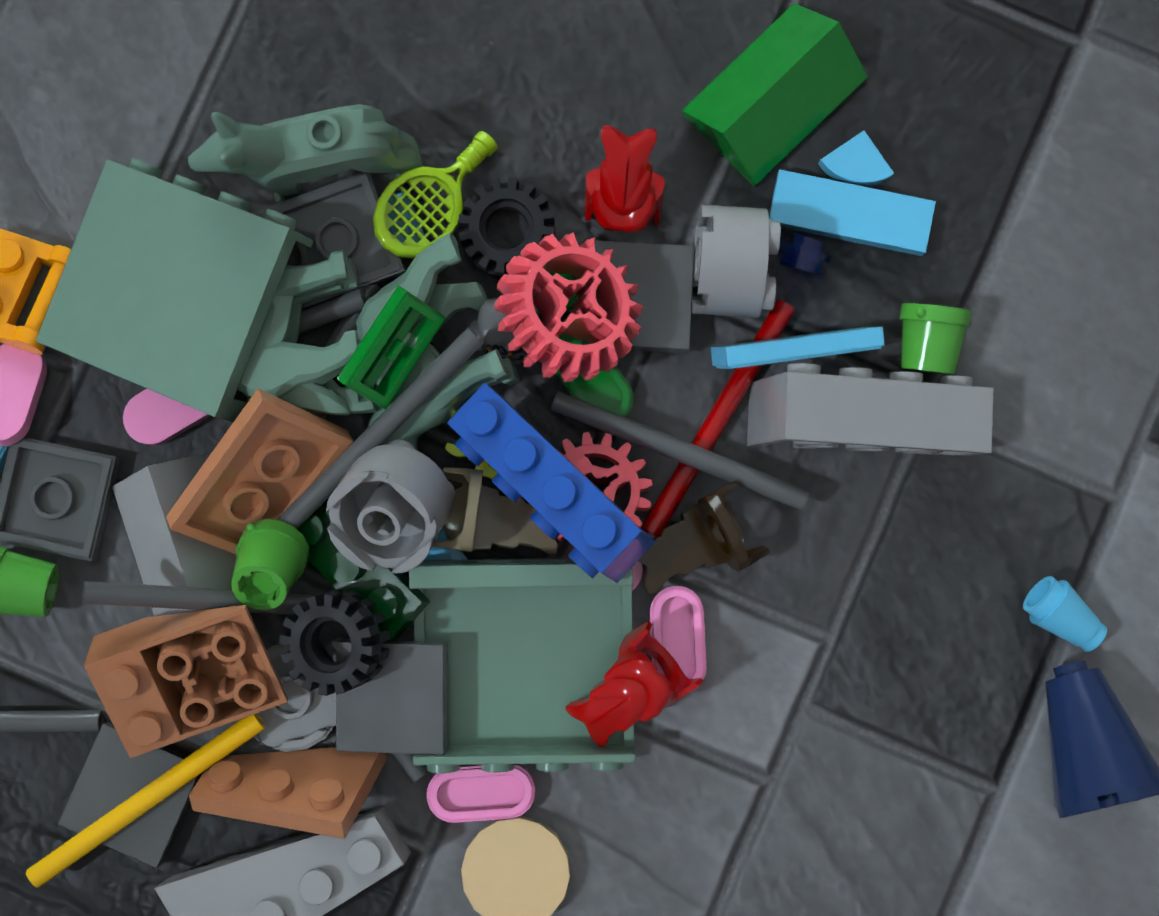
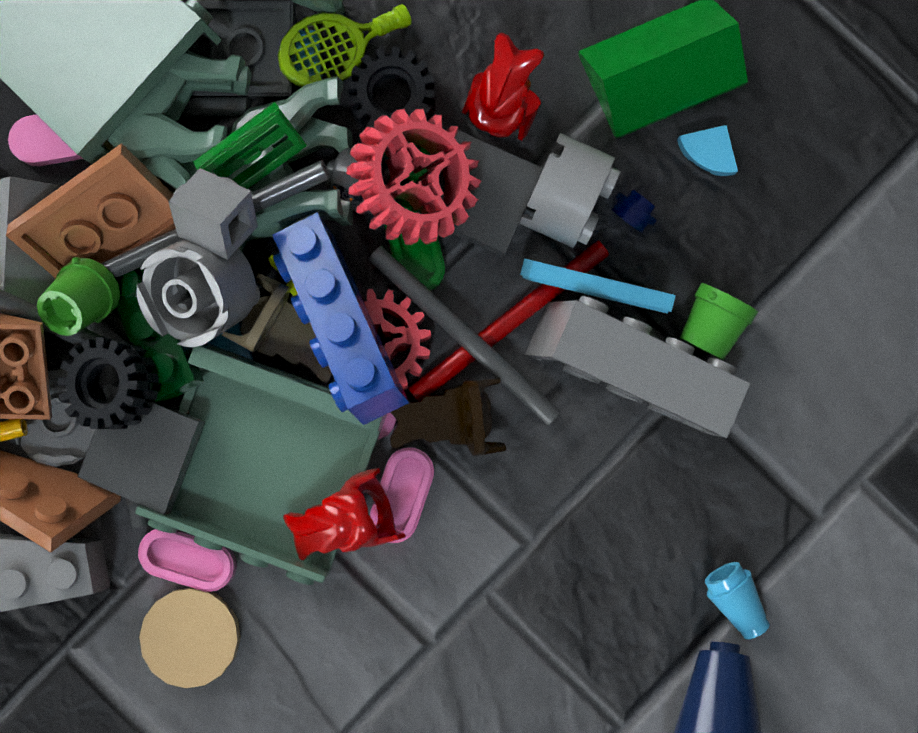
camera: 20 degrees right, 0 degrees up
(381, 424) = (213, 213): none -> light grey brick
(852, 212) = (689, 191): medium azure tile -> none

